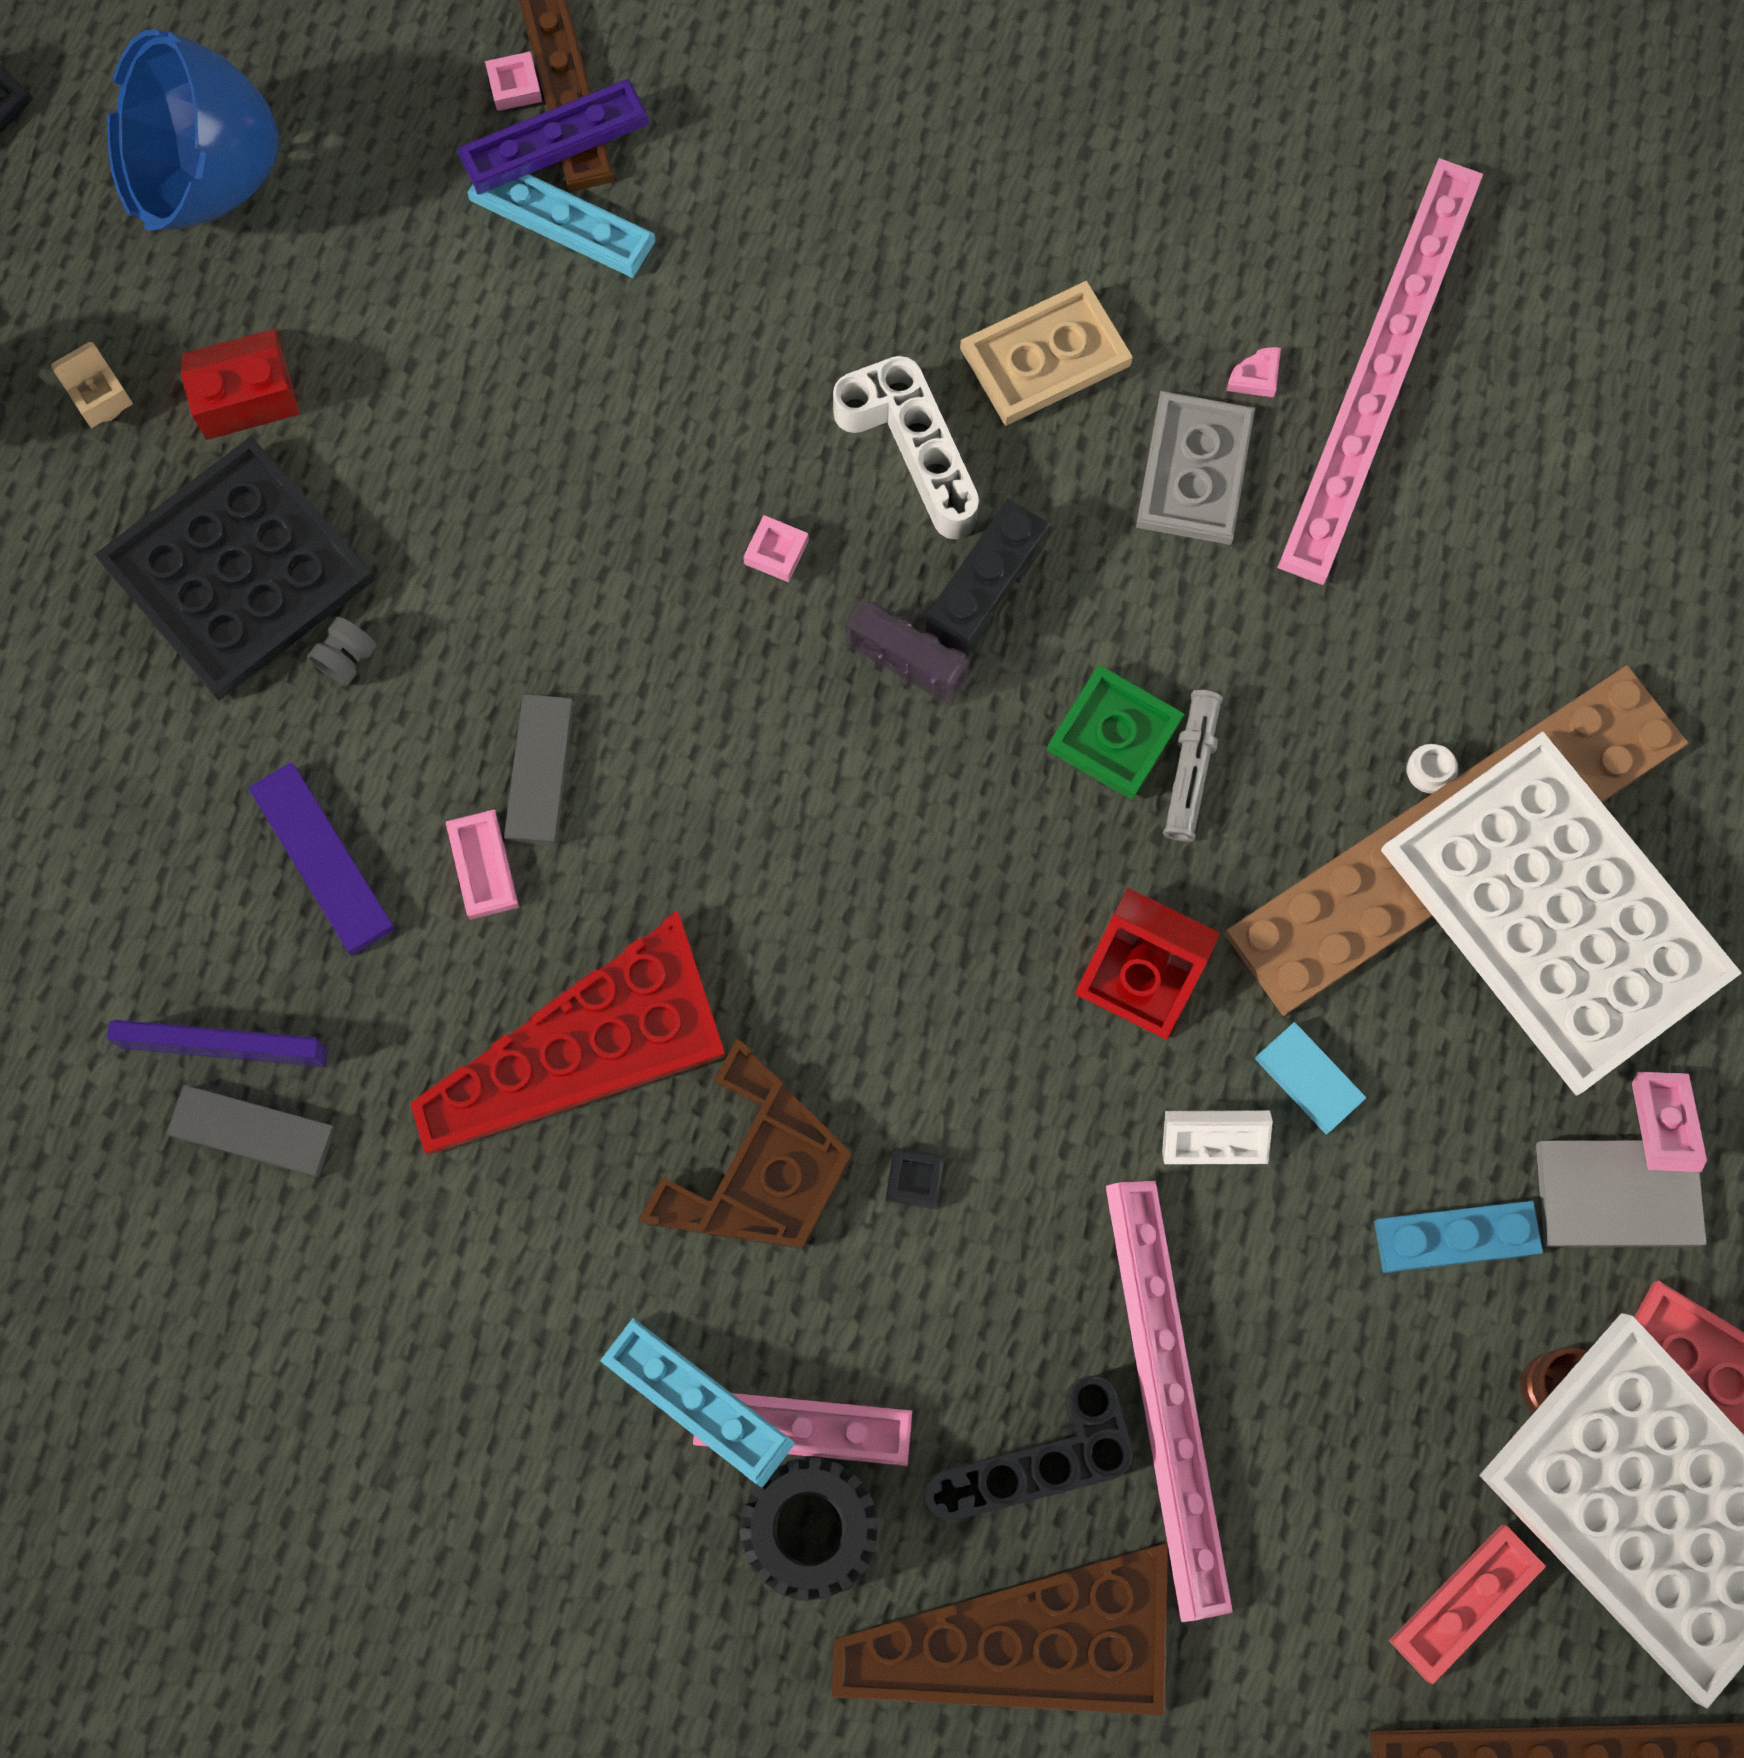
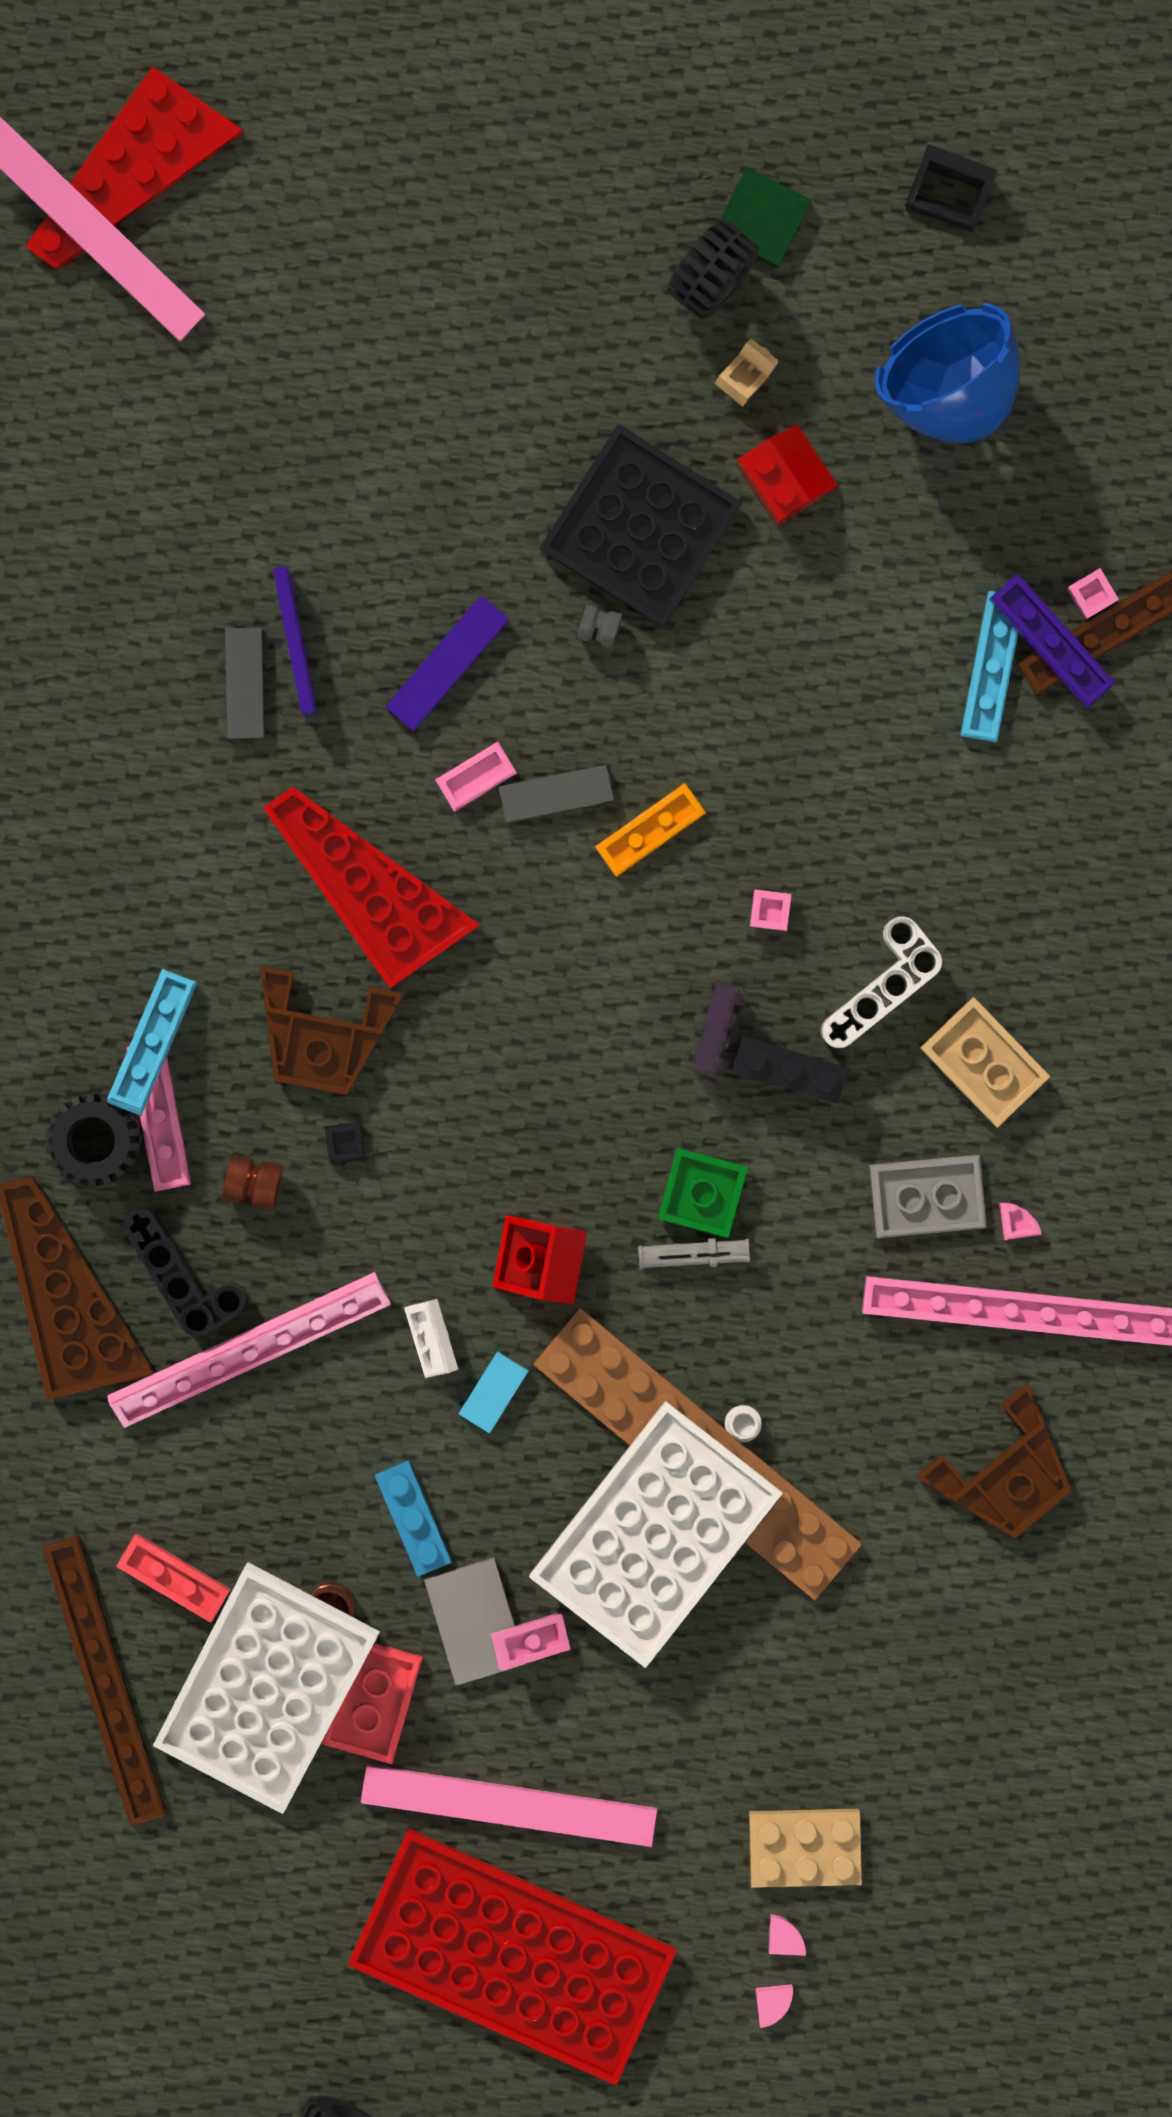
camera: 70 degrees right, 15 degrees up
(626, 667) = (650, 830): none -> light orange tile
(934, 1318) = (252, 1182): none -> copper wheel
(1589, 458) = (1016, 1484): none -> reddish brown wing

